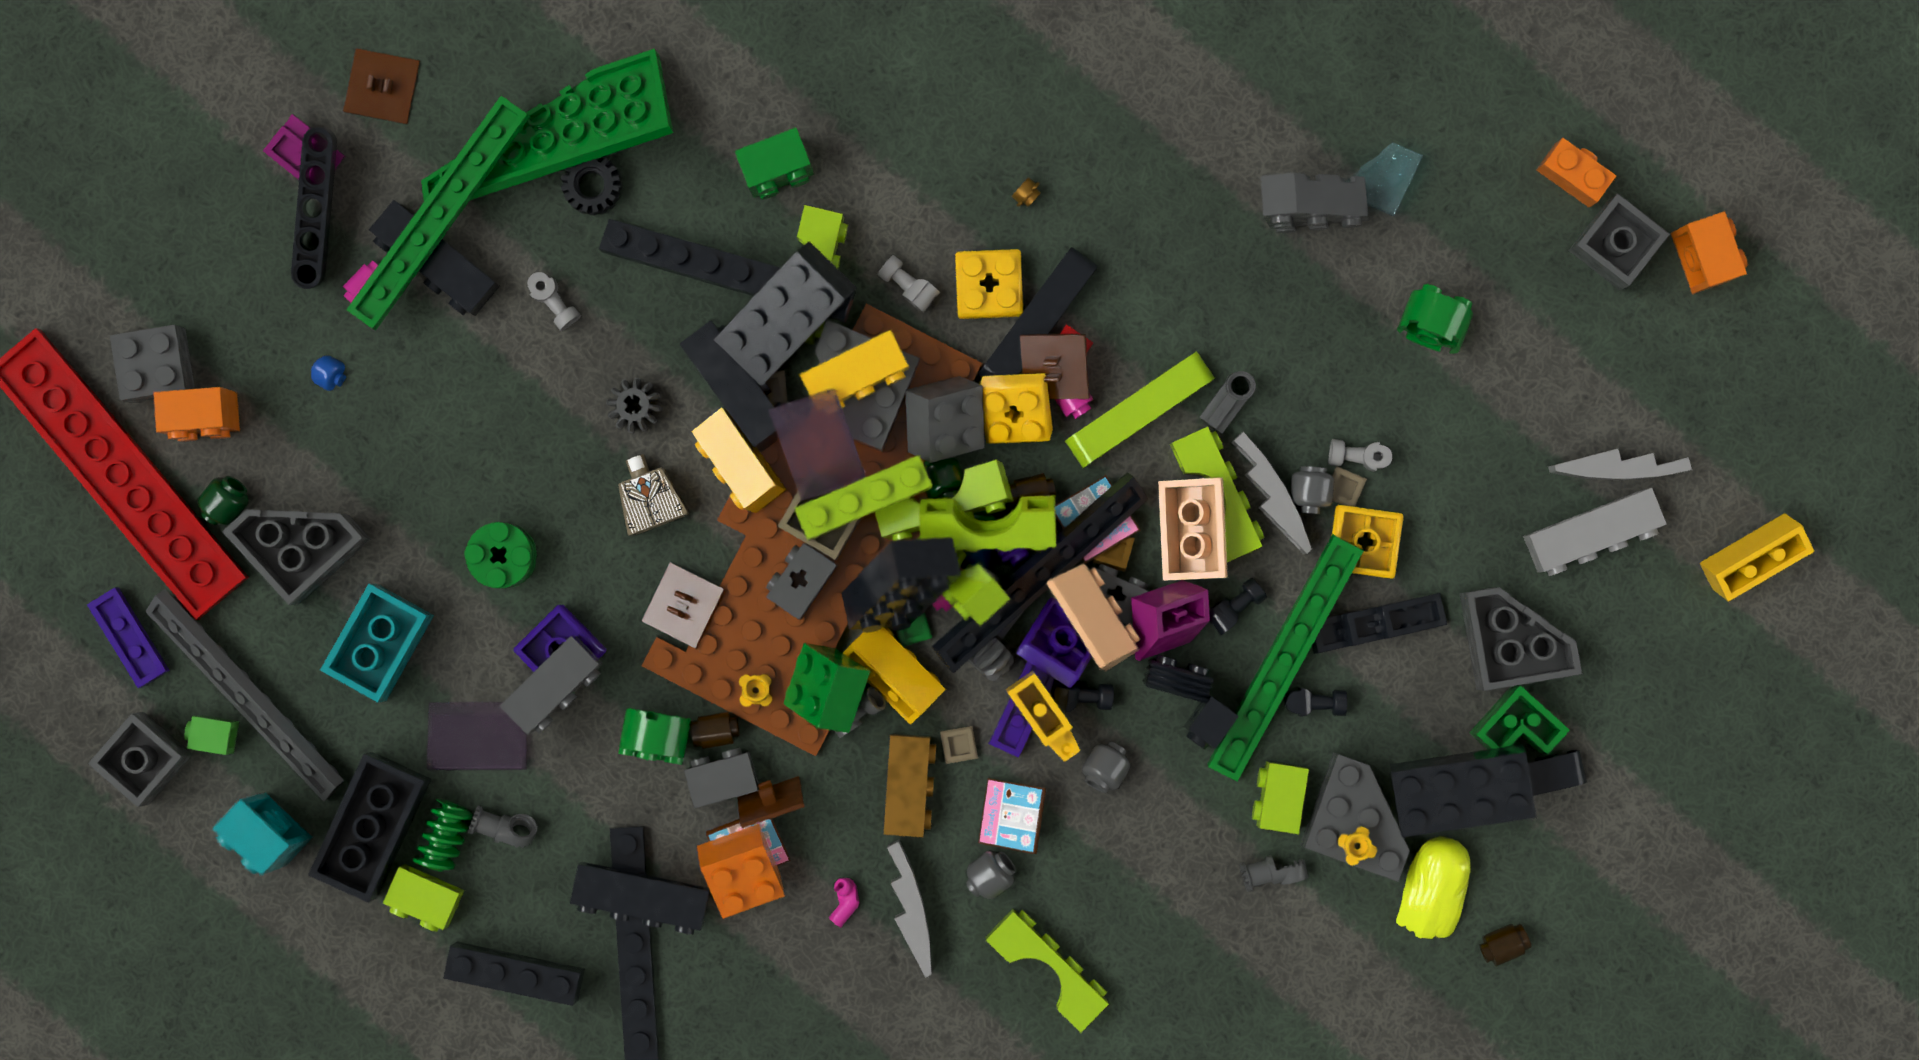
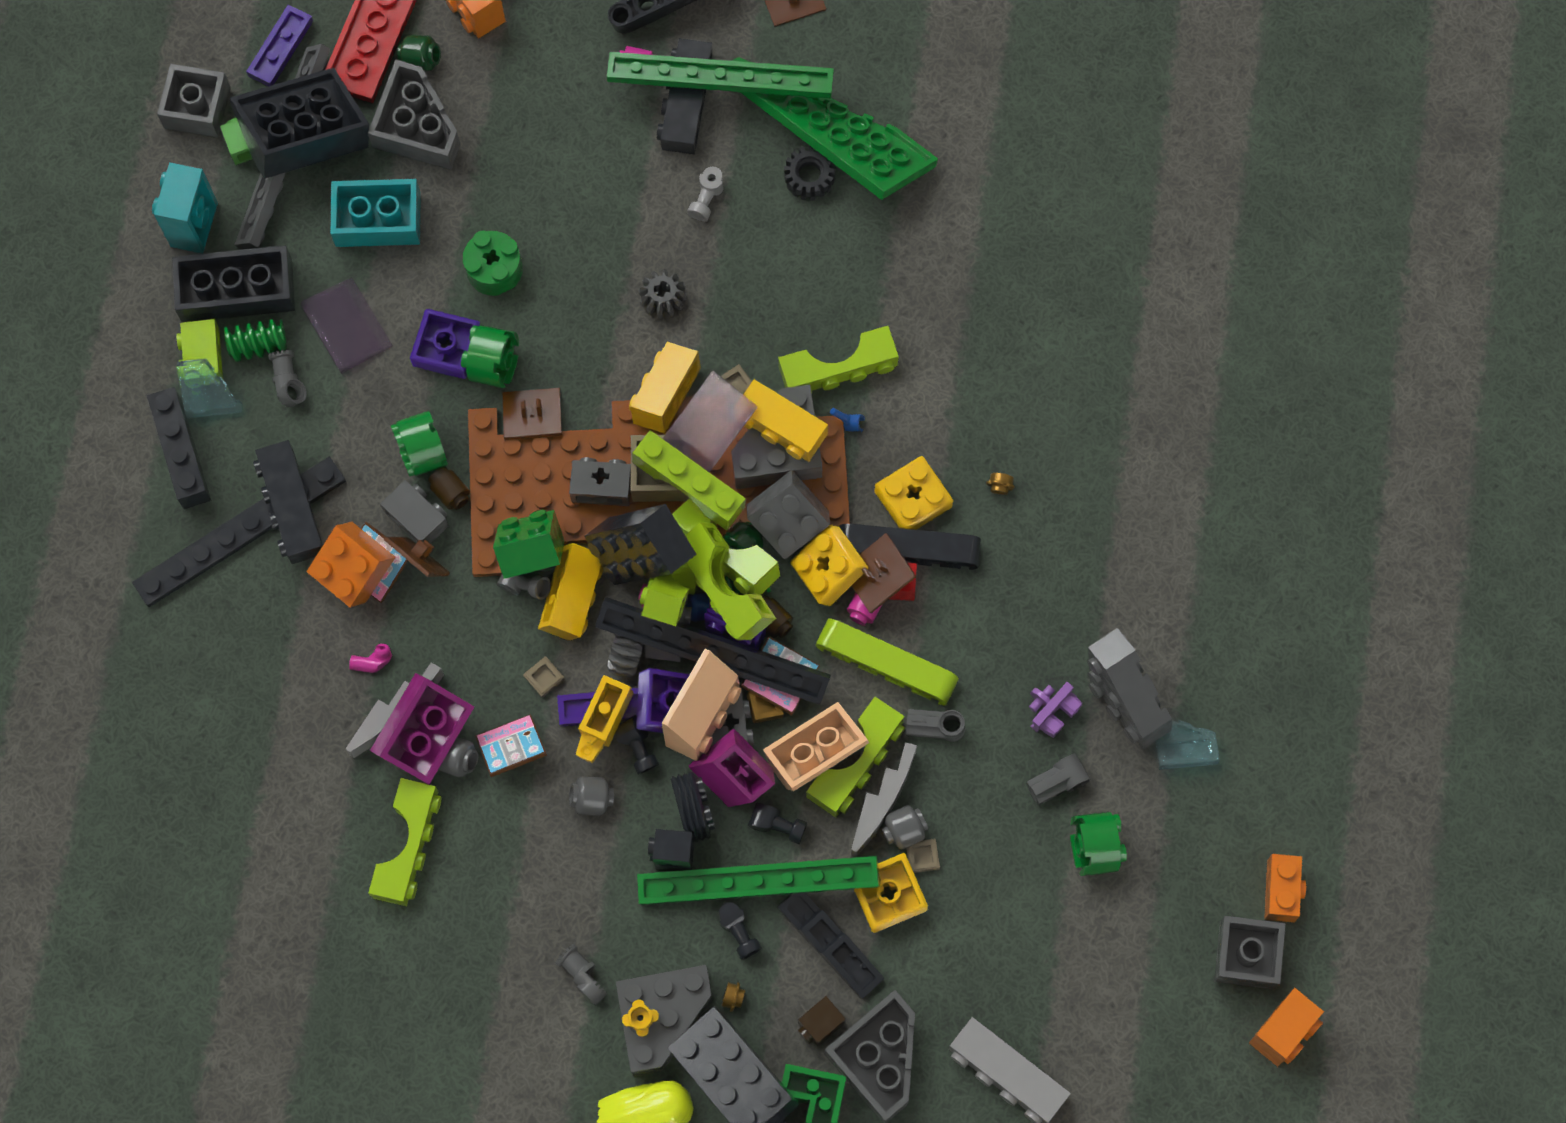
camera: 60 degrees right, 15 degrees down
(234, 666) = (300, 122): none -> black slope
(328, 372) = (557, 73): blue piece -> none
(469, 916) = (204, 391): none -> clear light blue wing
(552, 686) = (414, 346): dark grey brick -> none
(602, 613) = (490, 356): none -> green brick
(649, 498) = (598, 343): torso -> none
(694, 261) = (804, 301): black plate -> none
(734, 387) = (724, 345): black brick -> none
(761, 683) = (502, 492): yellow plate -> none
(775, 164) = (905, 287): green brick -> none
(785, 313) = (795, 350): black brick -> none
(876, 299) = (851, 421): none -> blue hand
(908, 785) = (489, 654): pearl gold brick -> none
(916, 633) = (617, 592): green tile -> none
(917, 292) = (875, 445): light grey leg -> none
(952, 895) = (422, 728): none -> magenta slope
(1275, 265) = (1062, 699): none -> medium lavender hips
(1281, 797) = (646, 945): lime brick -> none
(1349, 313) = (1061, 778): none -> dark grey piece
(1372, 456) = (960, 860): light grey leg -> none
(1374, 743) = (733, 996): none -> pearl gold plate
(1448, 677) = (820, 1022): none -> dark brown brick
(1611, 467) = (1066, 1052): light grey slope -> none

